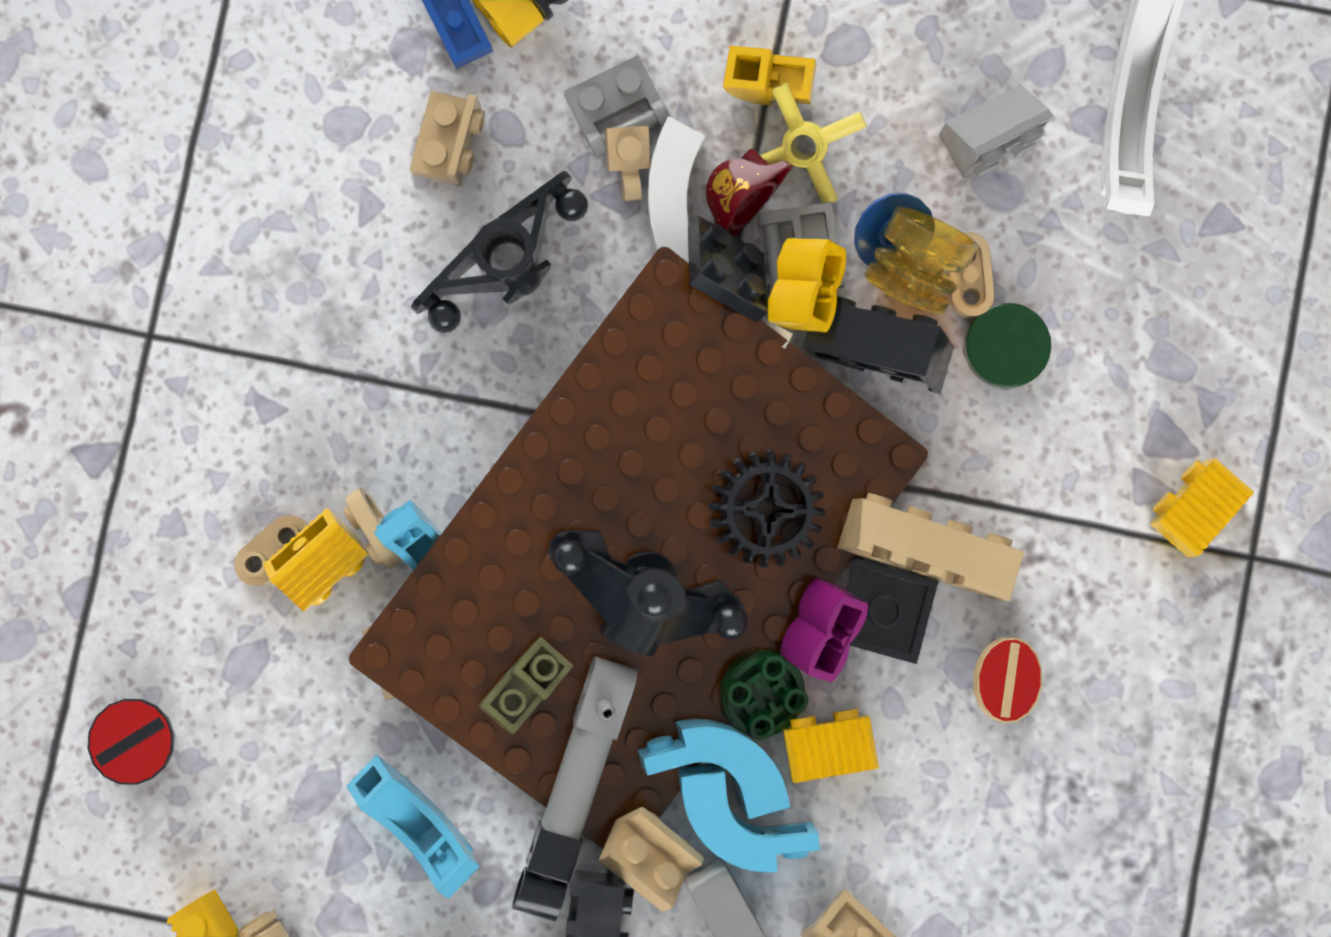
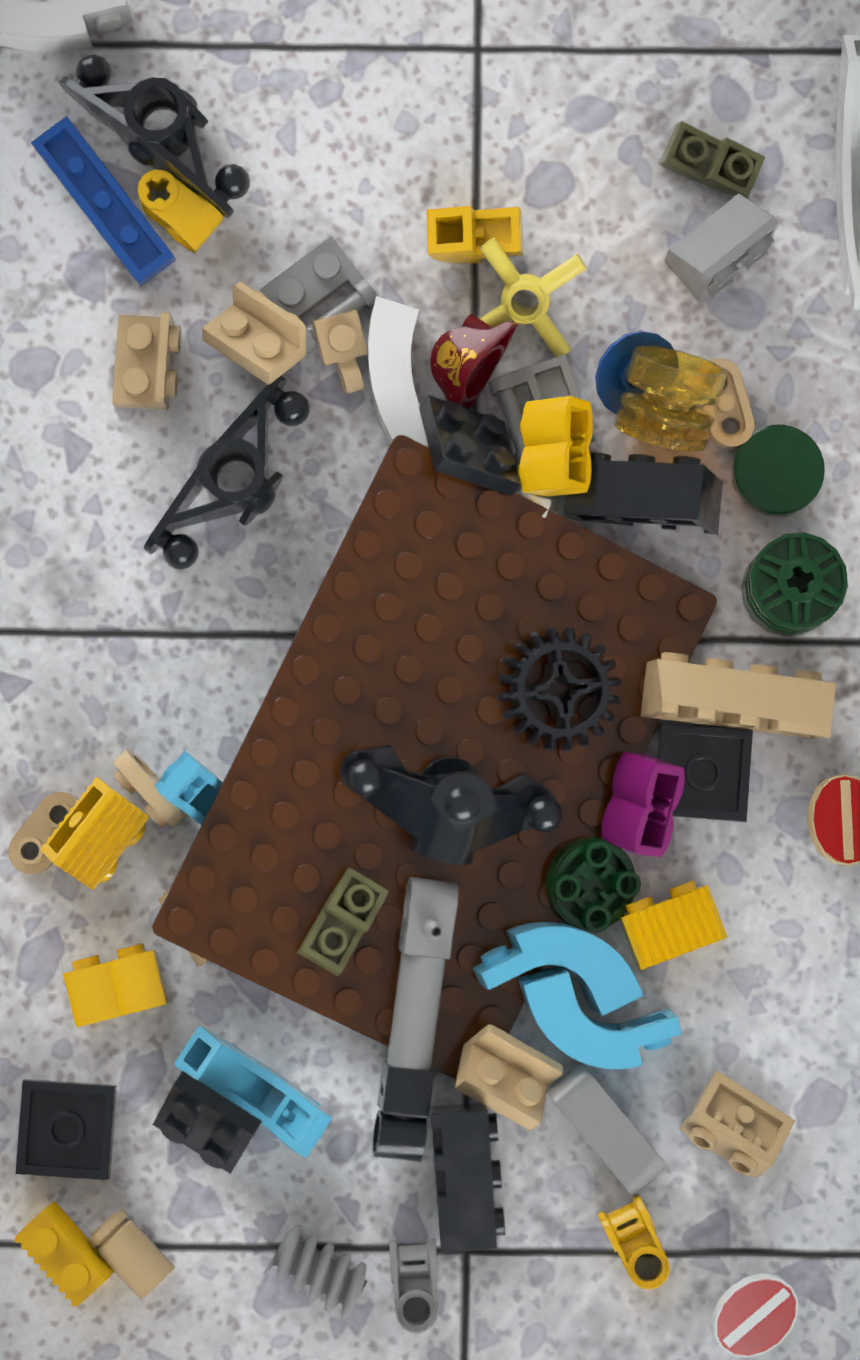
camera: 15 degrees left, 0 degrees up
(237, 826) = (66, 1129): none -> black plate
(307, 704) = (115, 987): none -> yellow brick
(364, 846) = (206, 1122): none -> black plate
(553, 131) = (257, 334): none -> tan bracket
(990, 475) = (785, 609): none -> dark green wheel
(1000, 52) = (712, 162): none -> olive slope

